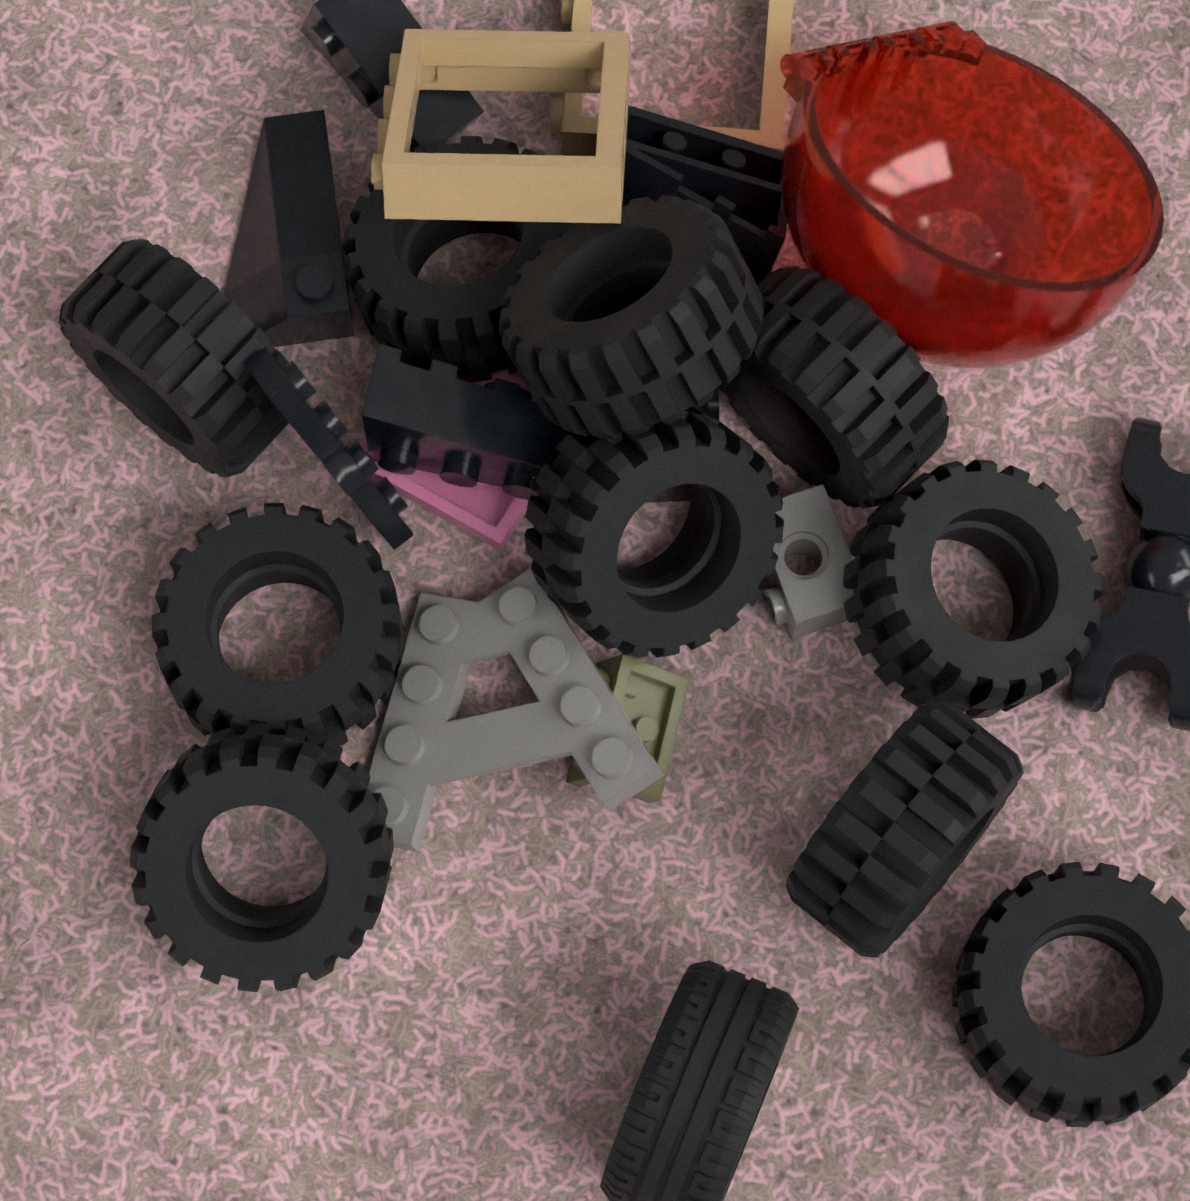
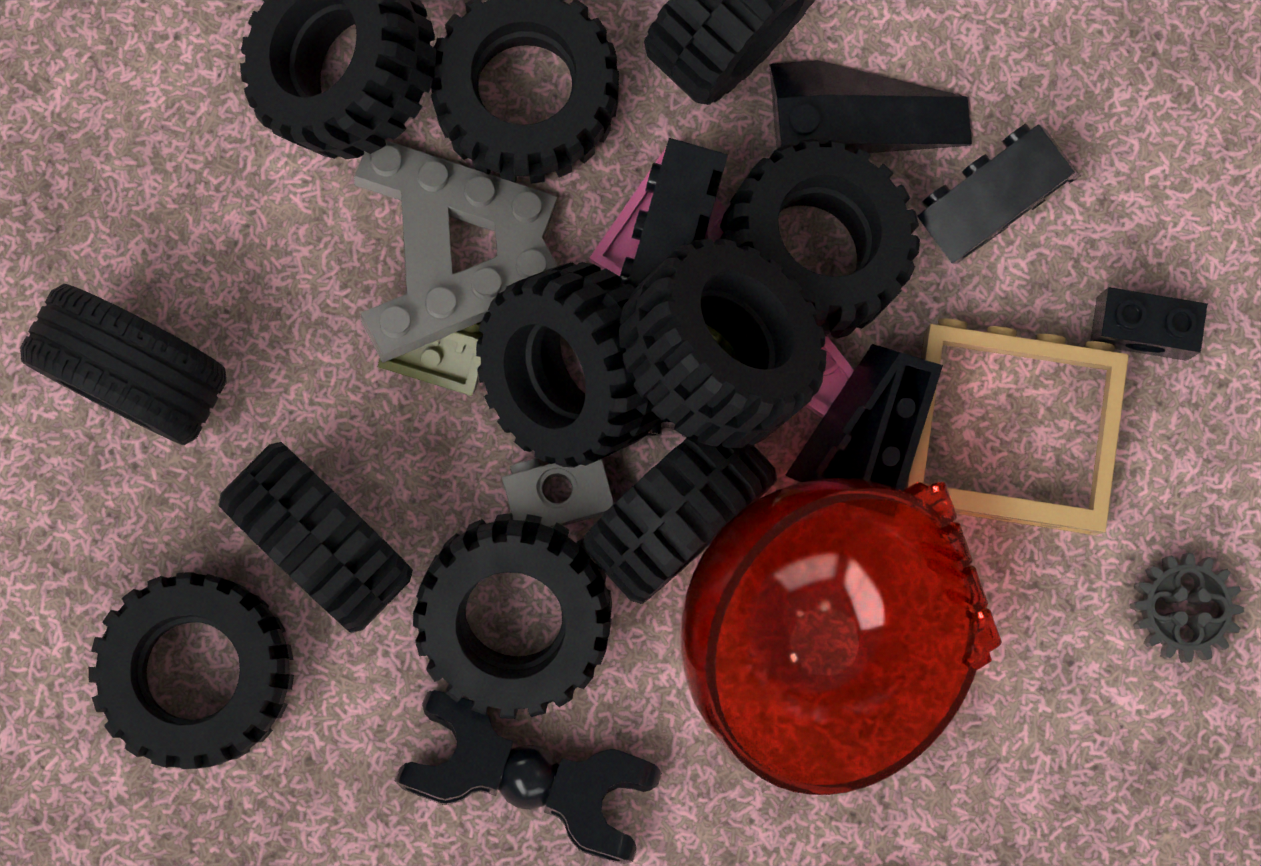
camera: 90 degrees right, 10 degrees up
(322, 432) = (644, 126): black hinge -> none
(504, 184) = (833, 251): tan window -> none

